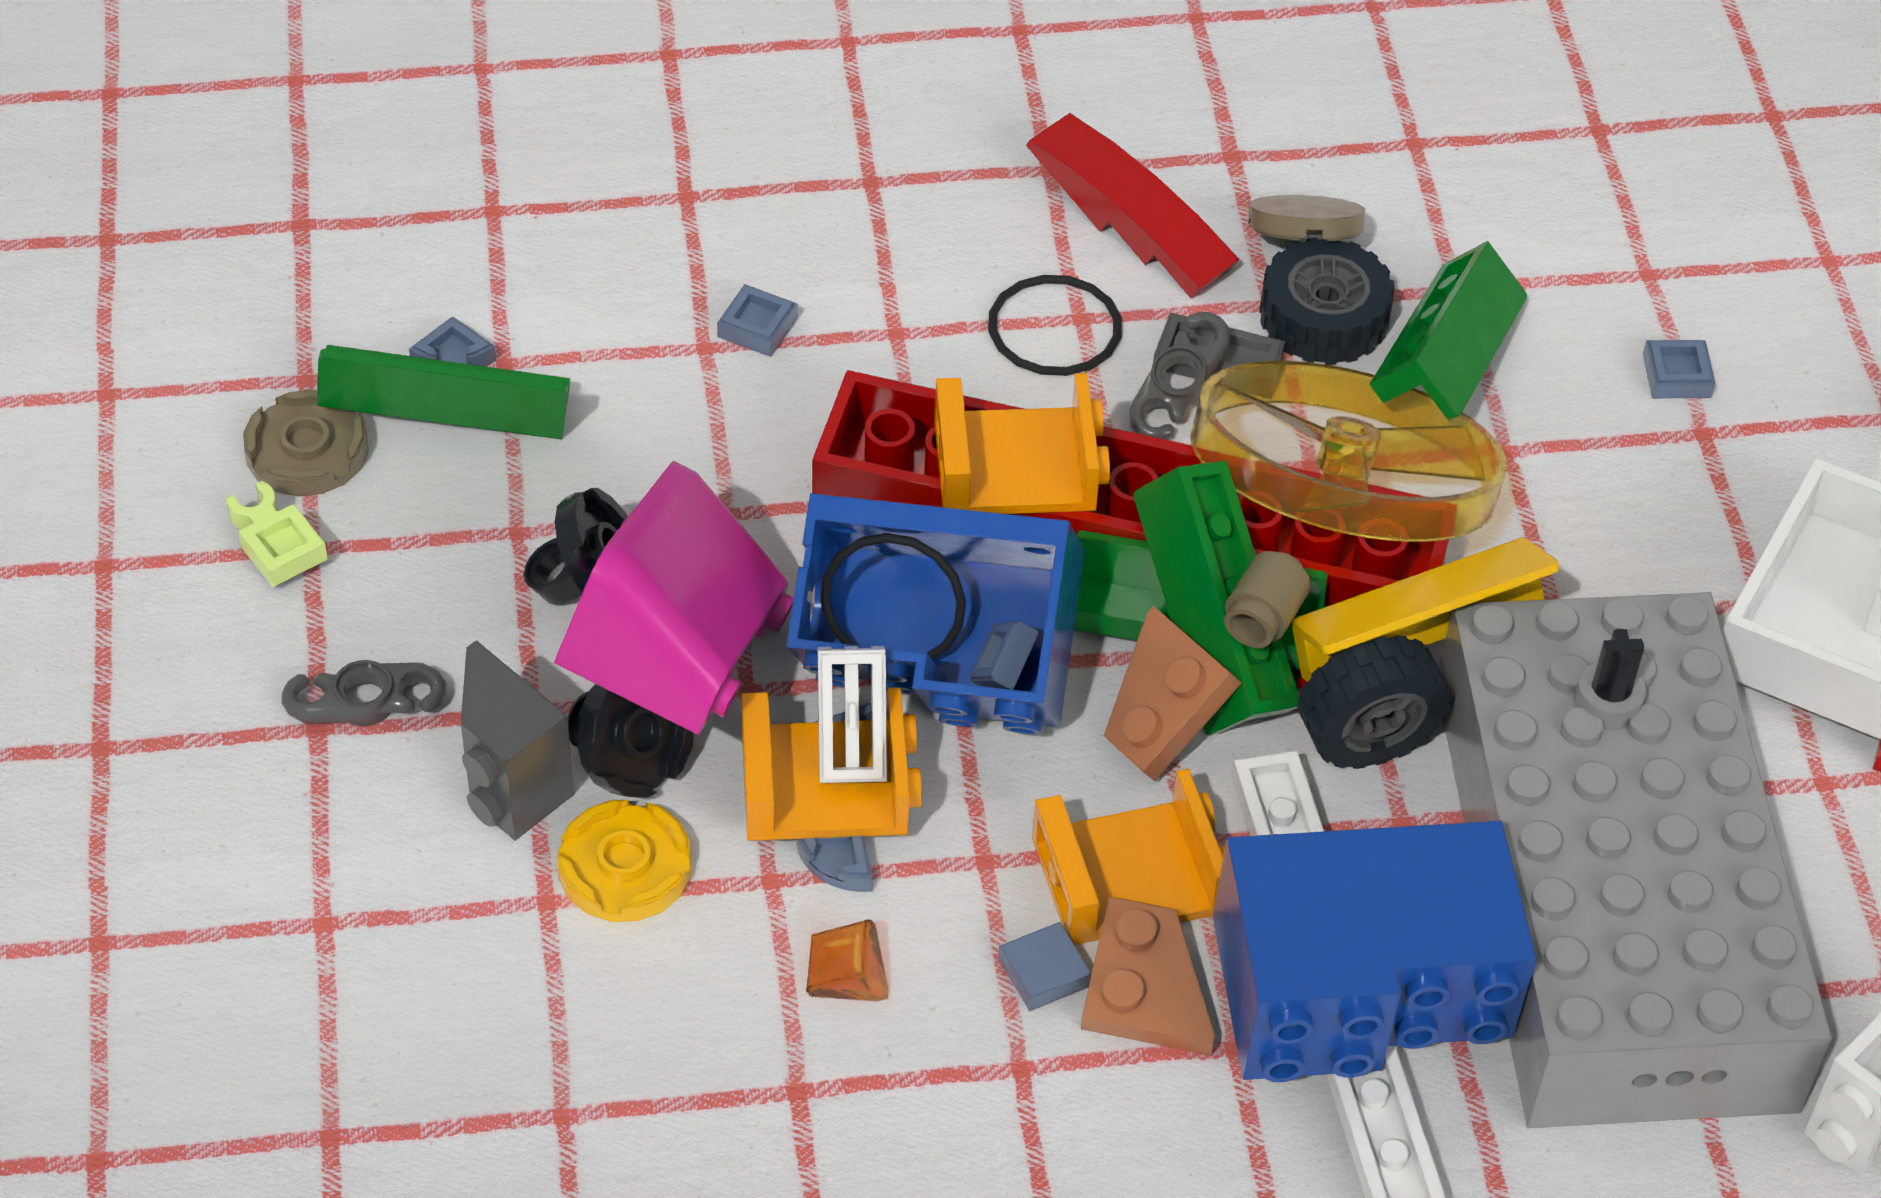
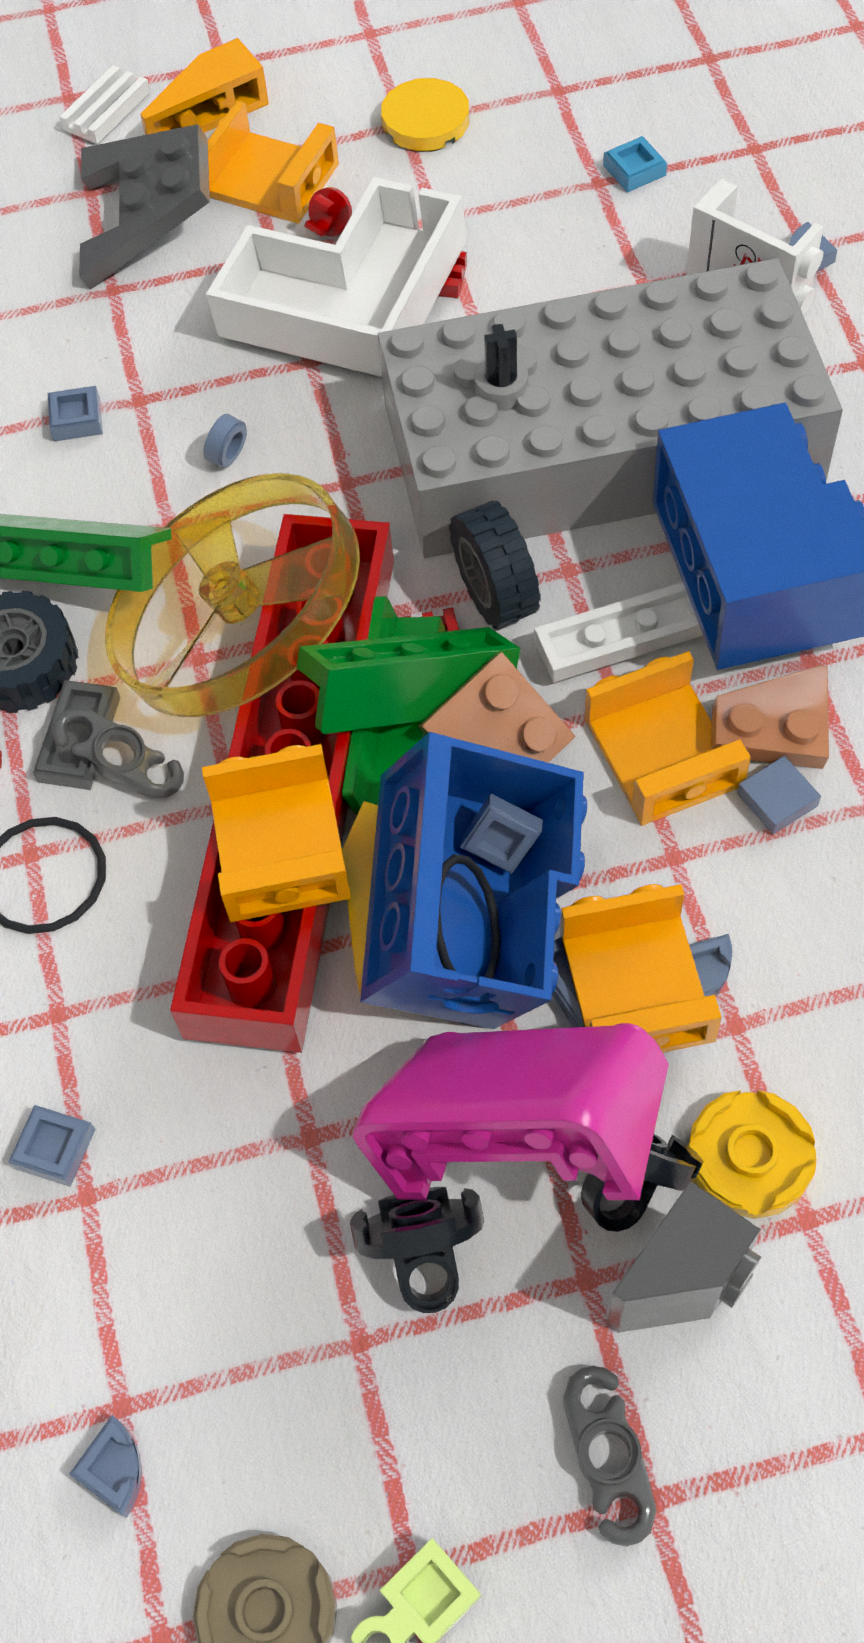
camera: 90 degrees left, 10 degrees up
(442, 391) = (188, 1461): green panel -> none
(847, 964) = (817, 946): clear orange slope -> none
(851, 657) = (603, 952): white tile -> none
(1266, 599) = (433, 619): dark tan brick -> none
(1422, 603) = (418, 514): yellow panel -> none
(1614, 494) = (225, 440): none -> sand blue tile

